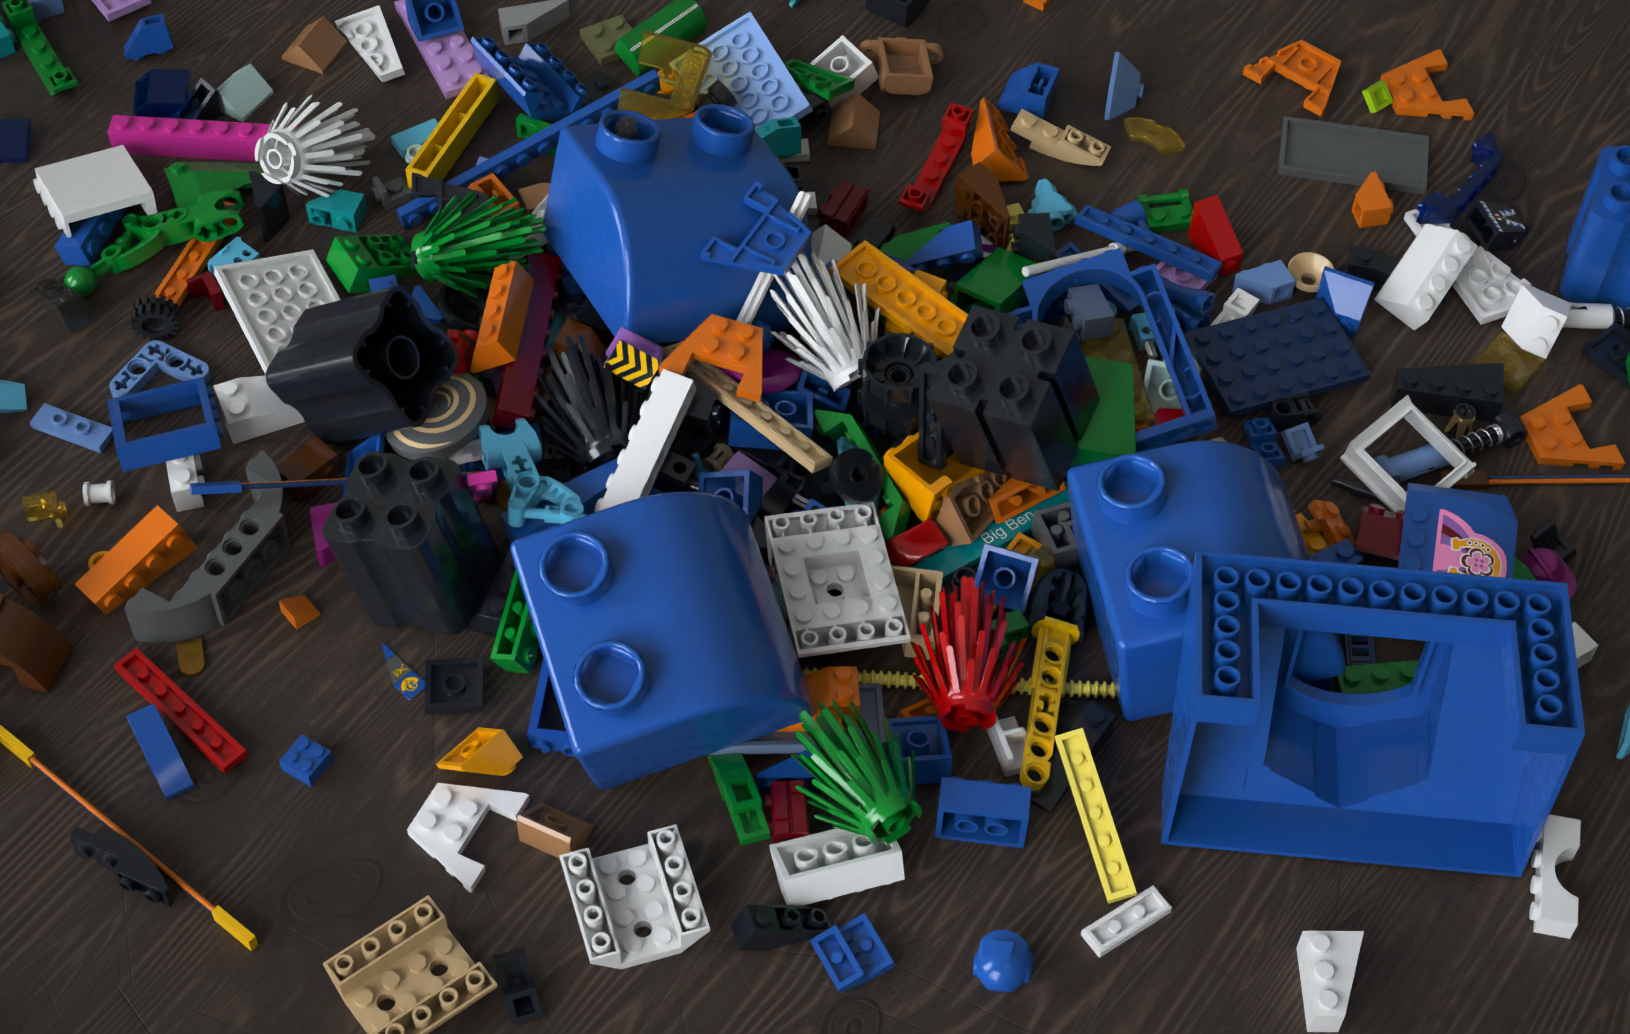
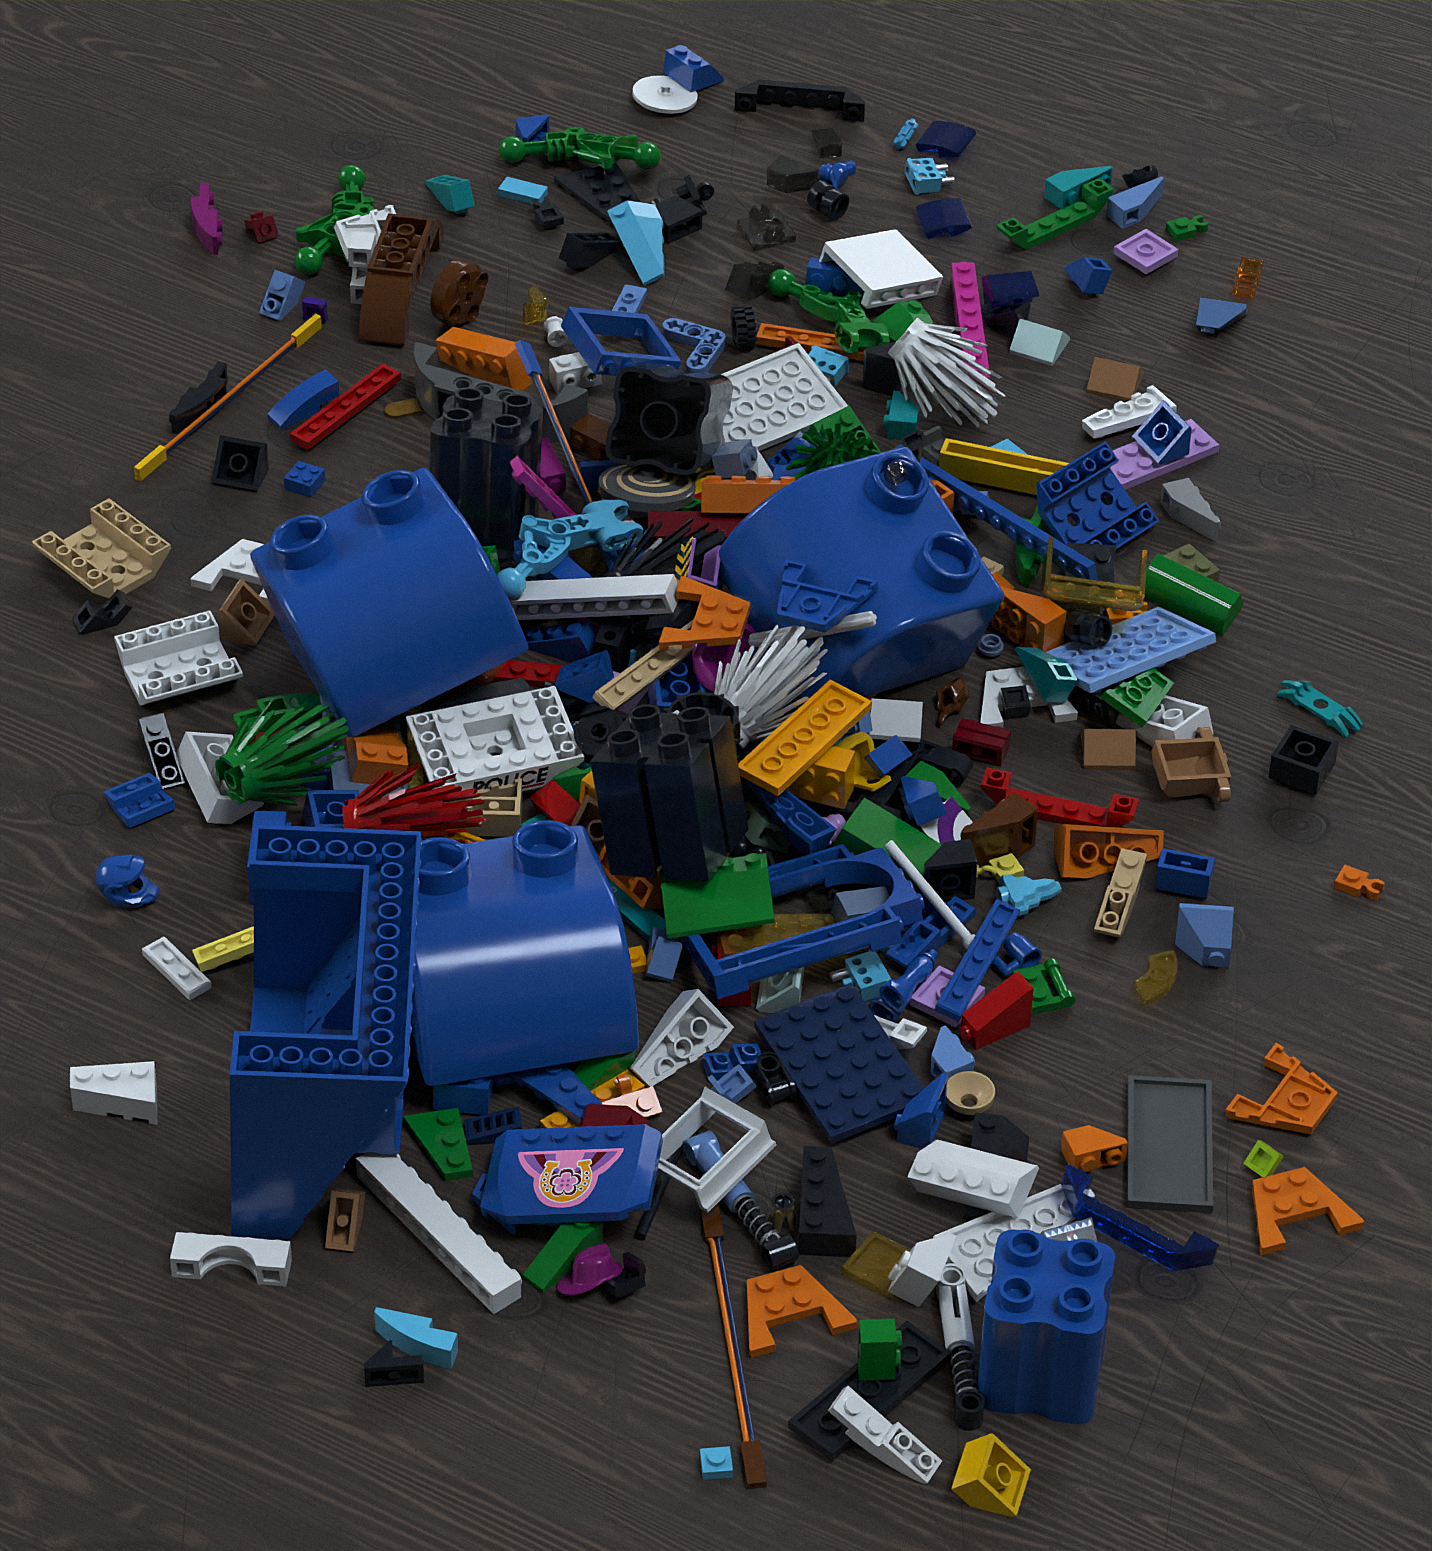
camera: 85 degrees right, 10 degrees down
(271, 824) = (240, 463): none -> black slope

